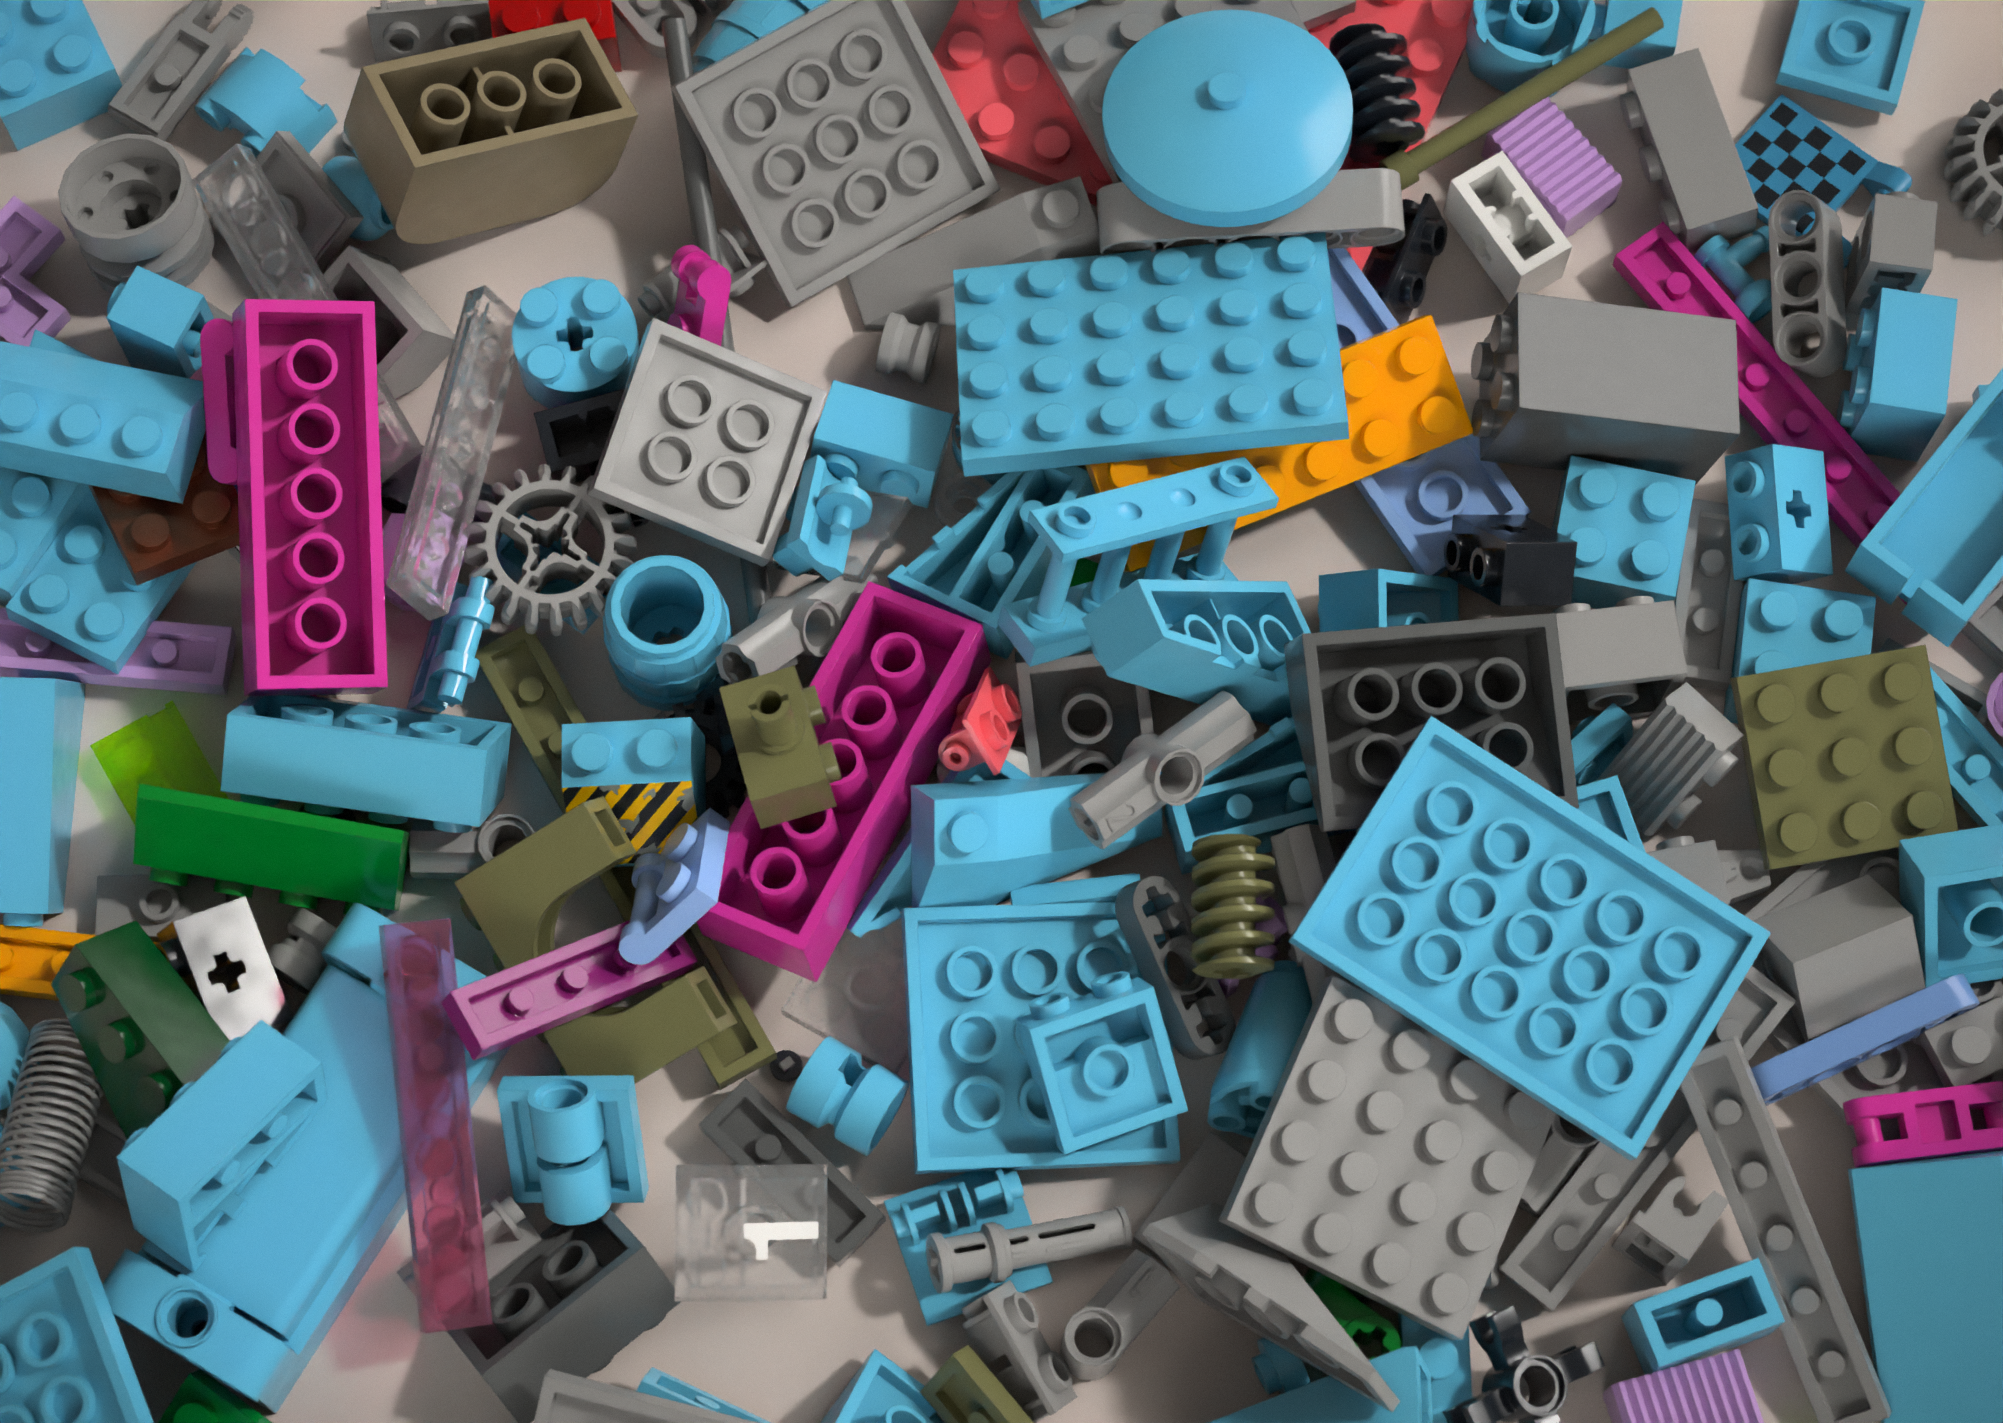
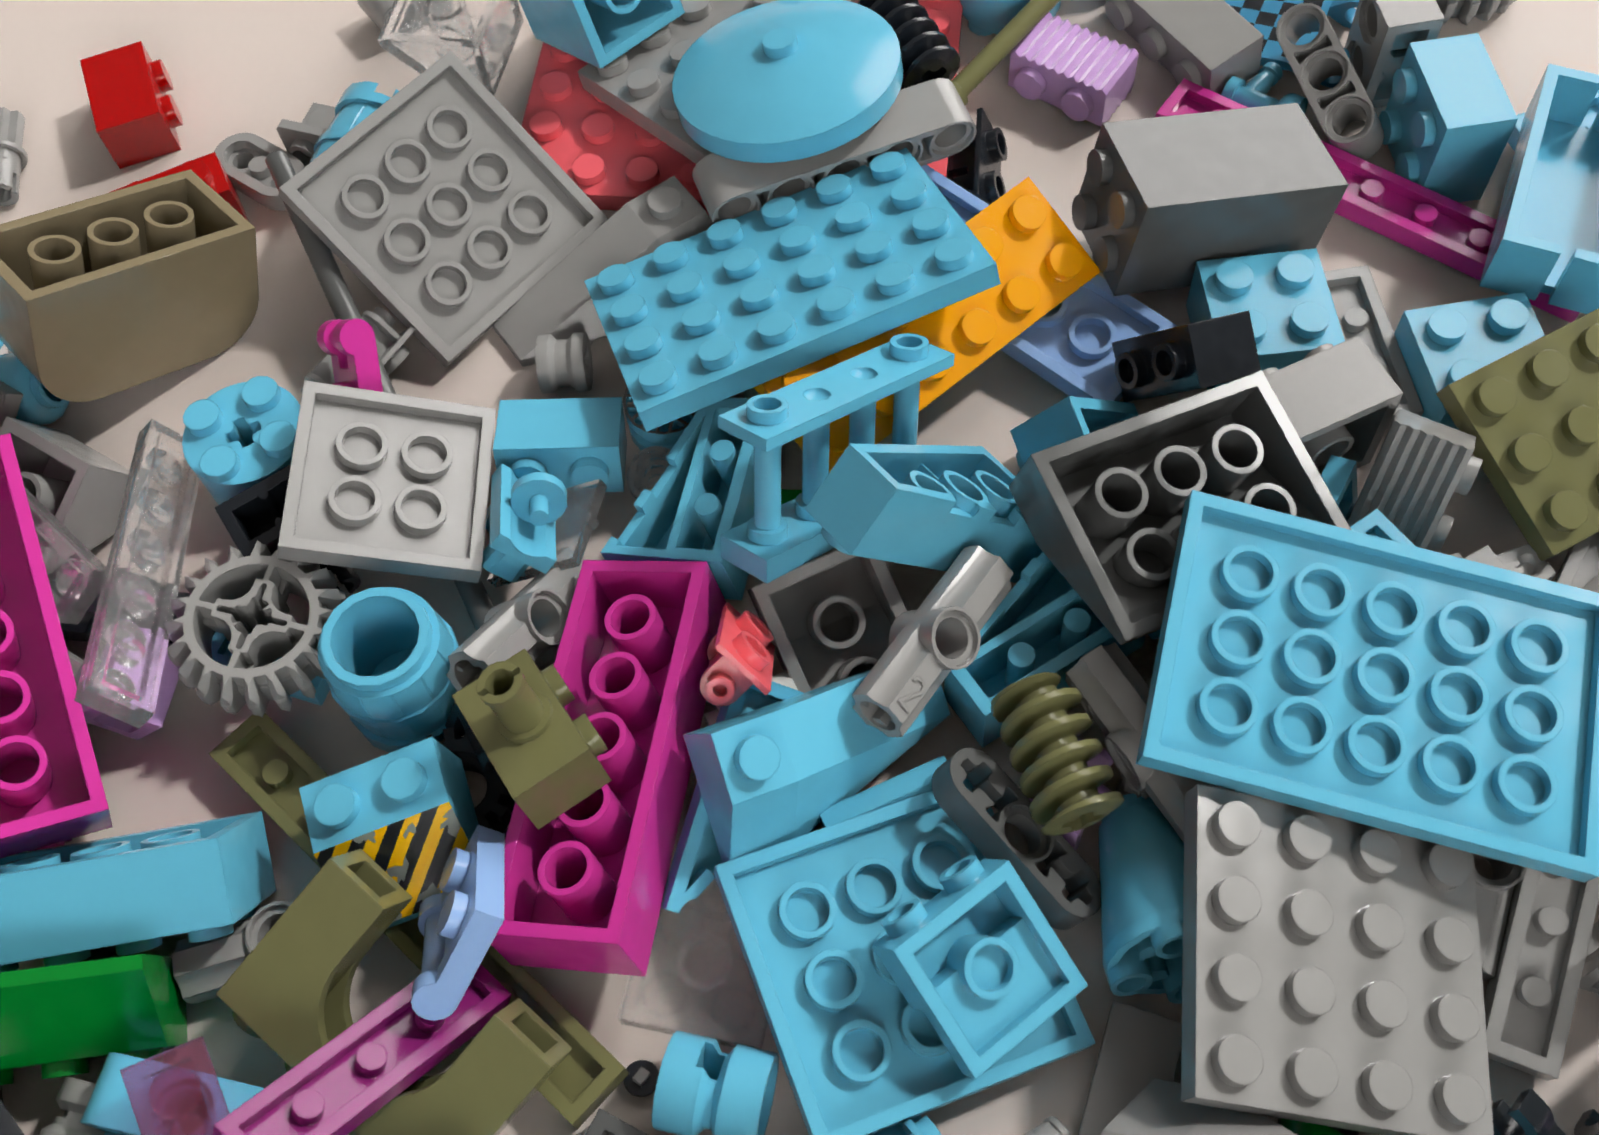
camera: 10 degrees left, 10 degrees down
(451, 649) = (185, 752): medium azure plate -> none
(1506, 227) = (1053, 113): white brick -> none
(1778, 514) = (1398, 255): medium azure brick -> none

